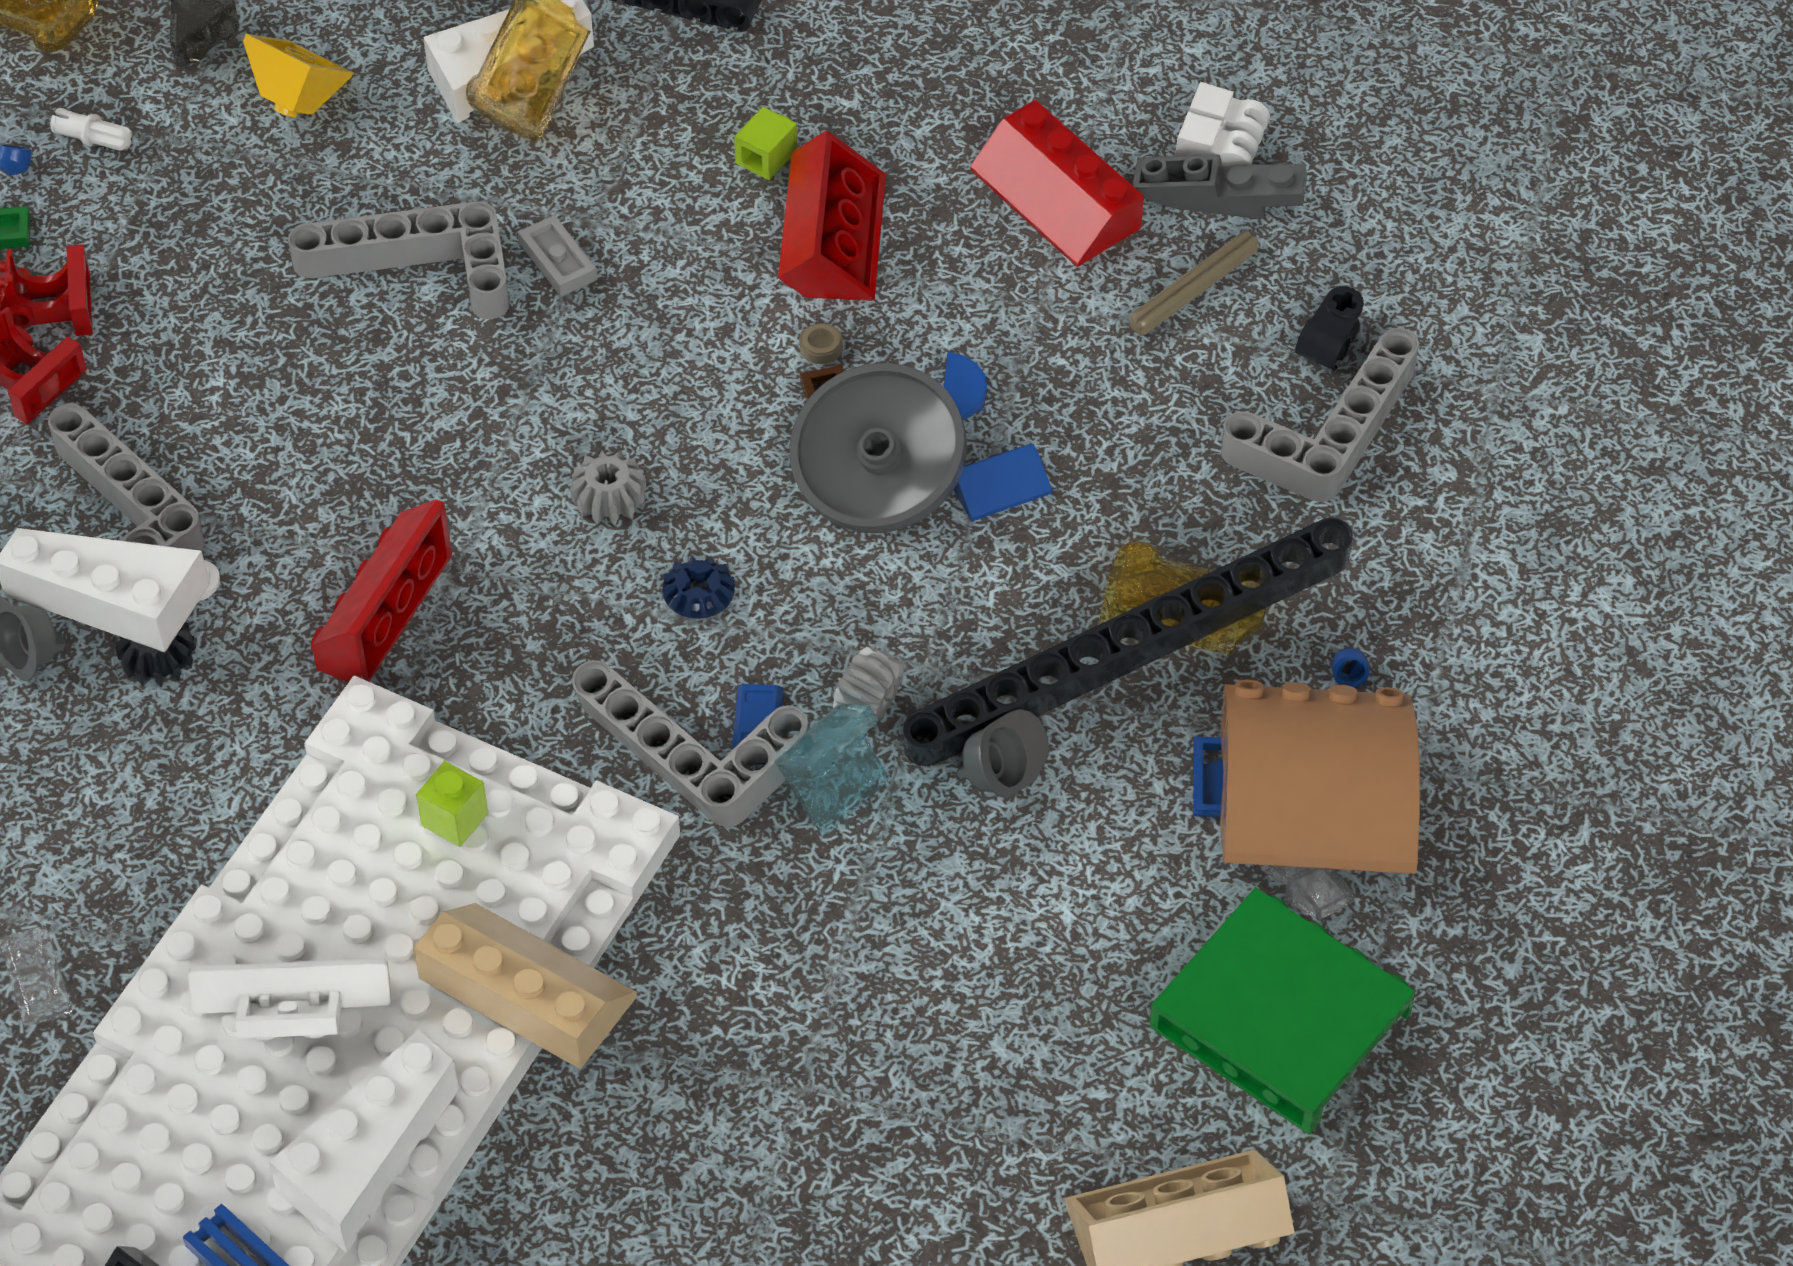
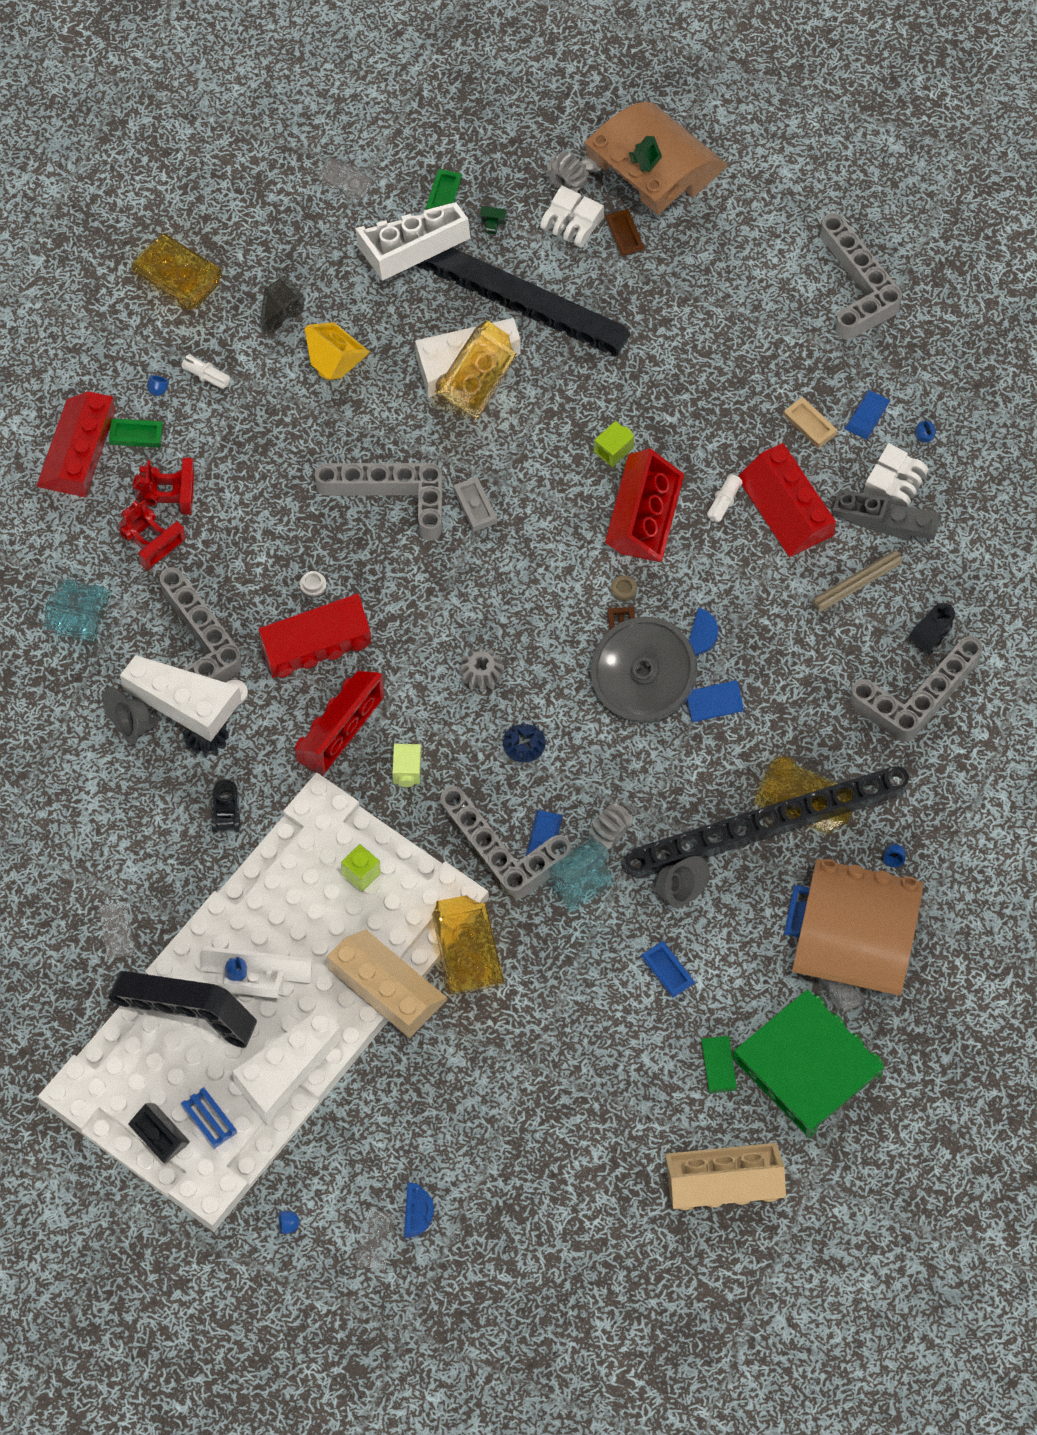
camera: 10 degrees right, 10 degrees up
(173, 1050) = (186, 999): none -> black beam
(206, 758) = (225, 811): none -> black piece
(254, 995) = (231, 972): none -> blue hinge
(308, 403) = (313, 584): none -> white plate
(320, 471) = (315, 636): none -> red slope
(506, 644) = (406, 764): none -> yellowish green brick
(657, 907) = (466, 945): none -> clear yellow slope
(957, 195) = (724, 498): none -> white axle
(1008, 897) = (667, 969): none -> blue tile
(1069, 78) = (810, 422): none -> tan tile
(1127, 1037) = (718, 1064): none -> green tile
(1155, 57) = (867, 414): none -> blue tile
(1246, 68) = (921, 431): none -> blue hinge

